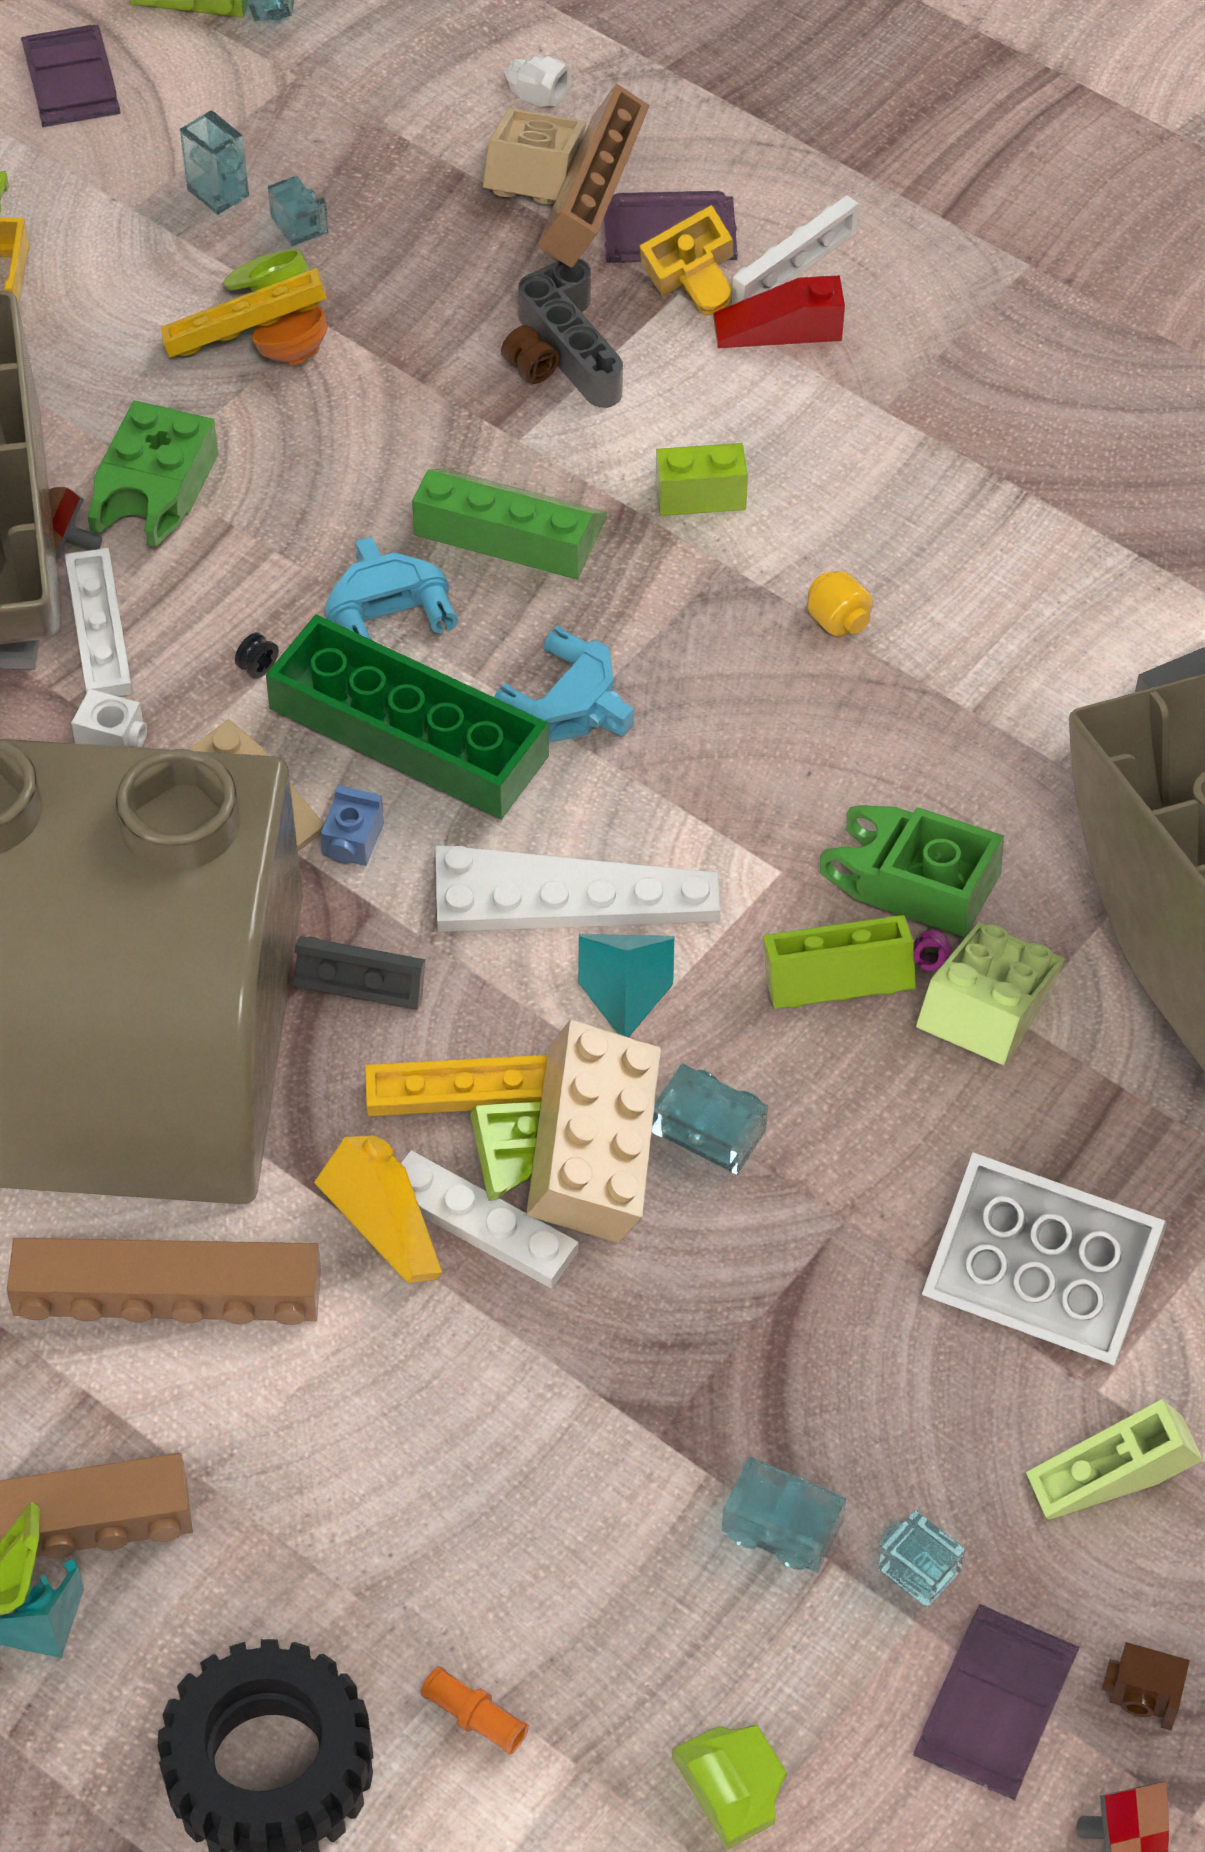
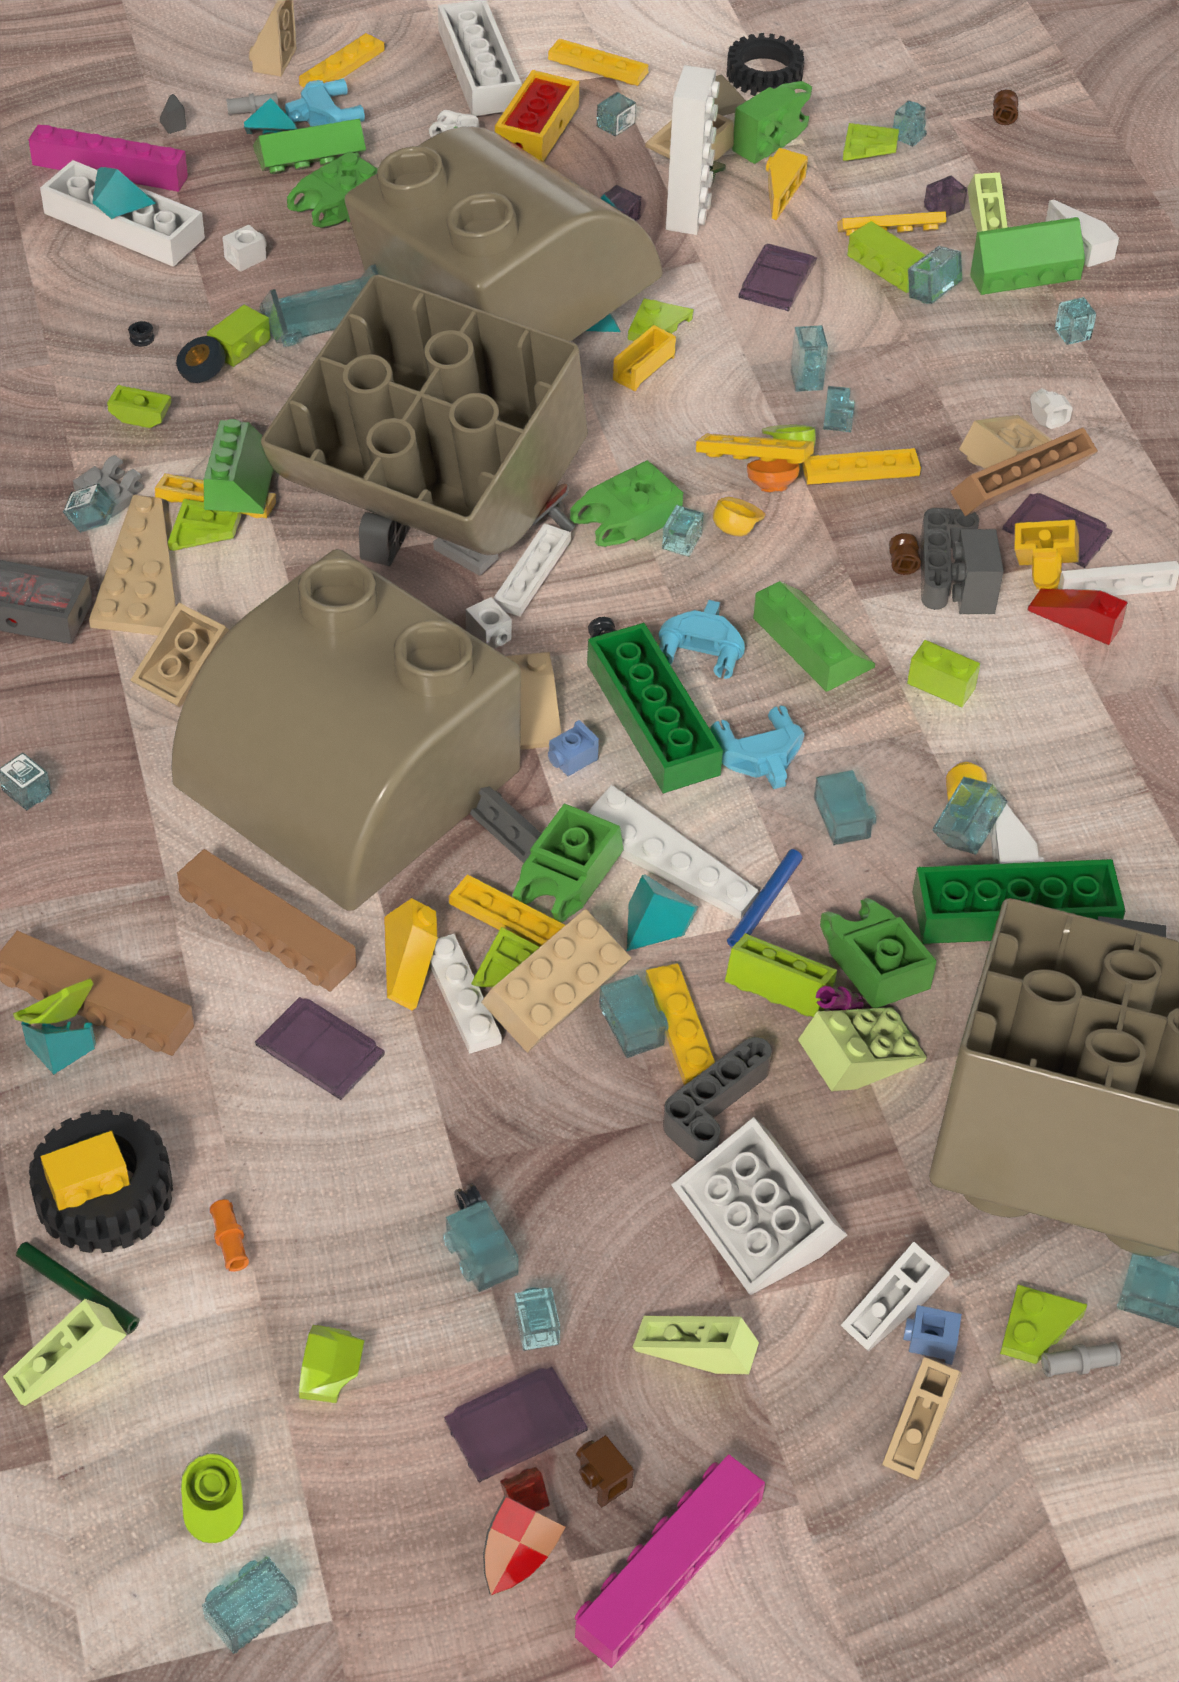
camera: 35 degrees right, 5 degrees down
(243, 469) = (682, 530): none -> clear light blue brick
(269, 1755) = (85, 1170): none -> yellow brick
(292, 415) = (736, 516): none -> yellow cap
(369, 1398) = (320, 1047): none -> clear purple piece
(387, 268) = (861, 466): none -> yellow plate
(475, 969) = (569, 860): none -> bright green brick
(642, 328) = (976, 571): none -> dark grey brick
(719, 1470) = (467, 1197): none -> black bush
(727, 711) = (844, 807): none -> clear light blue brick
(730, 880) = (766, 896): none -> blue piece
(791, 1105) = (684, 1027): none -> yellow plate
(883, 1145) = (746, 1065): none -> dark grey beam
(885, 637) = (970, 815): none -> clear light blue brick
(951, 649) = (1012, 841): none -> white slope
(1013, 710) = (966, 899): none -> green brick
(1086, 1776) = (527, 1489): none -> clear red tile

